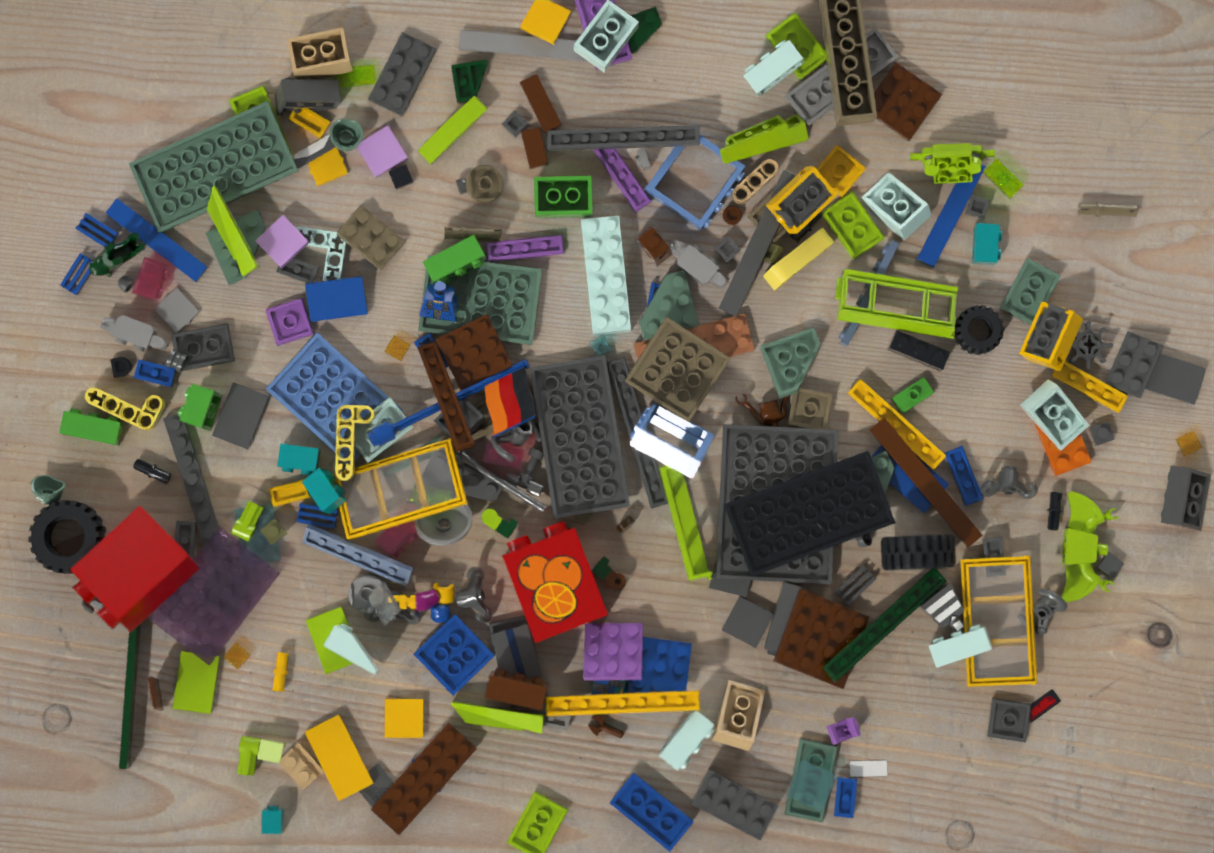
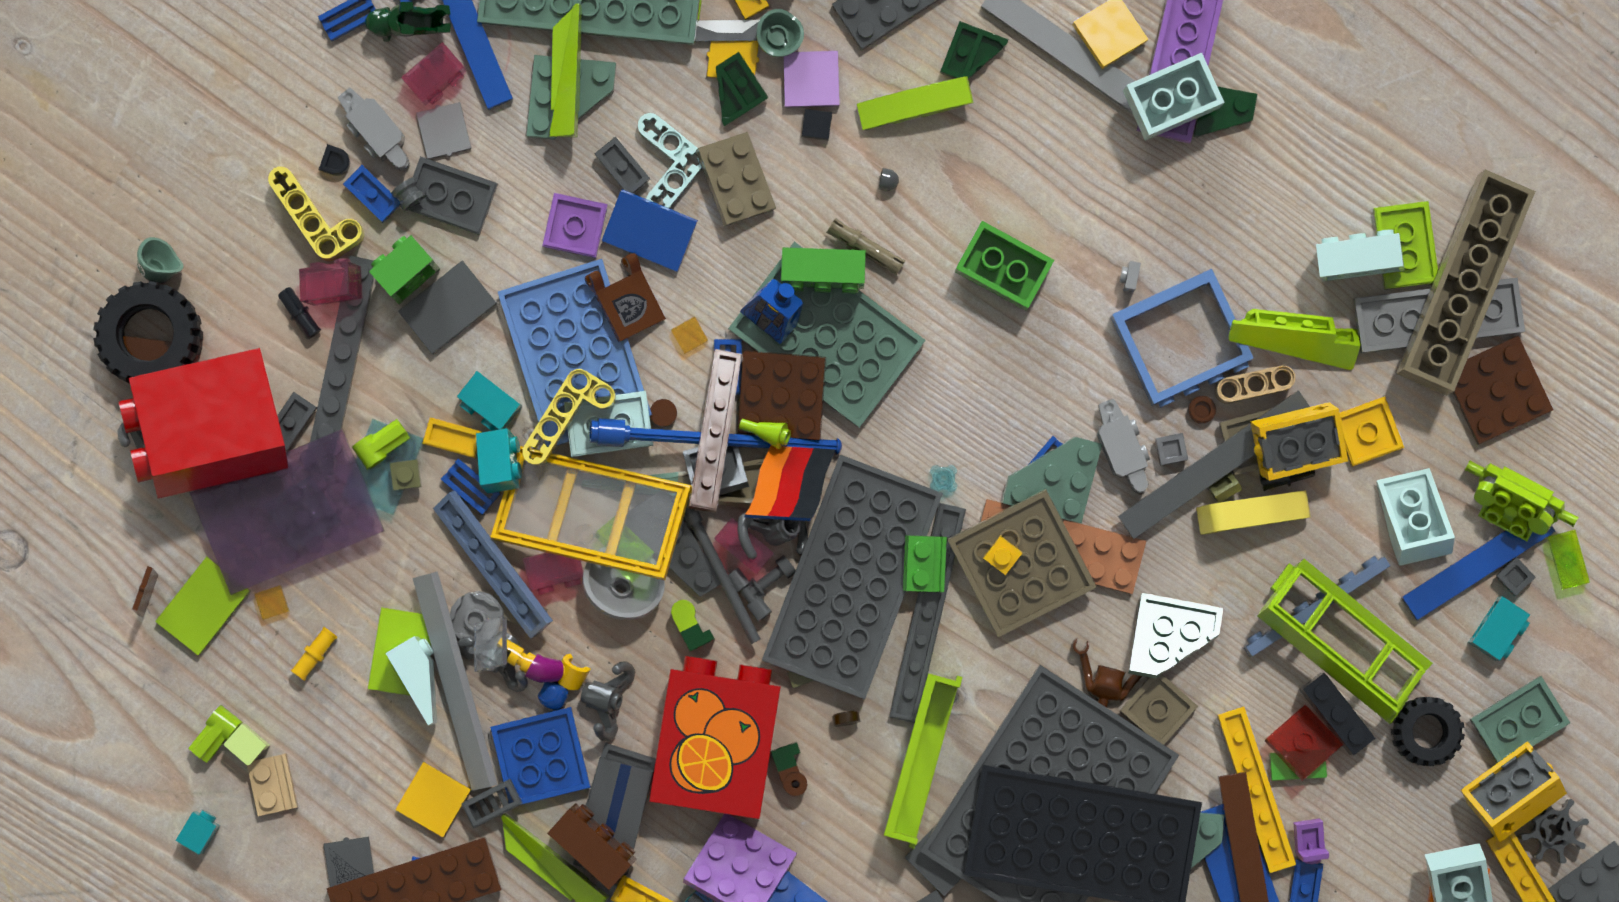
camera: 30 degrees right, 0 degrees up
(91, 427) = (256, 215): bright green brick -> none
(126, 283) = (400, 61): dark grey hinge -> none
(129, 698) = (109, 579): dark green tile -> none
(160, 442) = (330, 282): none -> clear pink brick
(282, 241) = (623, 121): lavender tile -> none
(339, 757) = (325, 801): yellow tile -> none
(340, 182) = (738, 88): none -> dark green wing
(348, 349) = (628, 302): none -> reddish brown flag
(375, 639) = (454, 681): none -> light grey tile
(408, 404) = (663, 413): none -> reddish brown tile
(433, 712) = (473, 813): none -> dark grey slope
(482, 377) = (773, 433): none -> lime cone
(484, 184) = (915, 193): dark tan tile -> none
(515, 124) = (997, 140): dark grey tile -> none
(525, 248) = (920, 302): medium lavender tile -> none
(534, 148) = (1004, 184): reddish brown tile -> none
(540, 103) = (1043, 132): reddish brown tile -> none
(606, 275) = (1000, 394): light aqua brick -> none
(618, 403) = (924, 563): none -> bright green plate
(623, 138) = (1122, 235): dark grey plate -> none
(623, 178) = (1093, 281): medium lavender tile -> none
(653, 246) = (1082, 391): reddish brown torso -> none
(663, 371) = (1002, 555): none -> yellow plate
(663, 450) = (945, 655): window -> none
(852, 225) = (1345, 509): lime tile -> none
(908, 379) = (1303, 742): none -> clear red tile
(946, 436) = (1310, 841): none -> medium lavender bracket

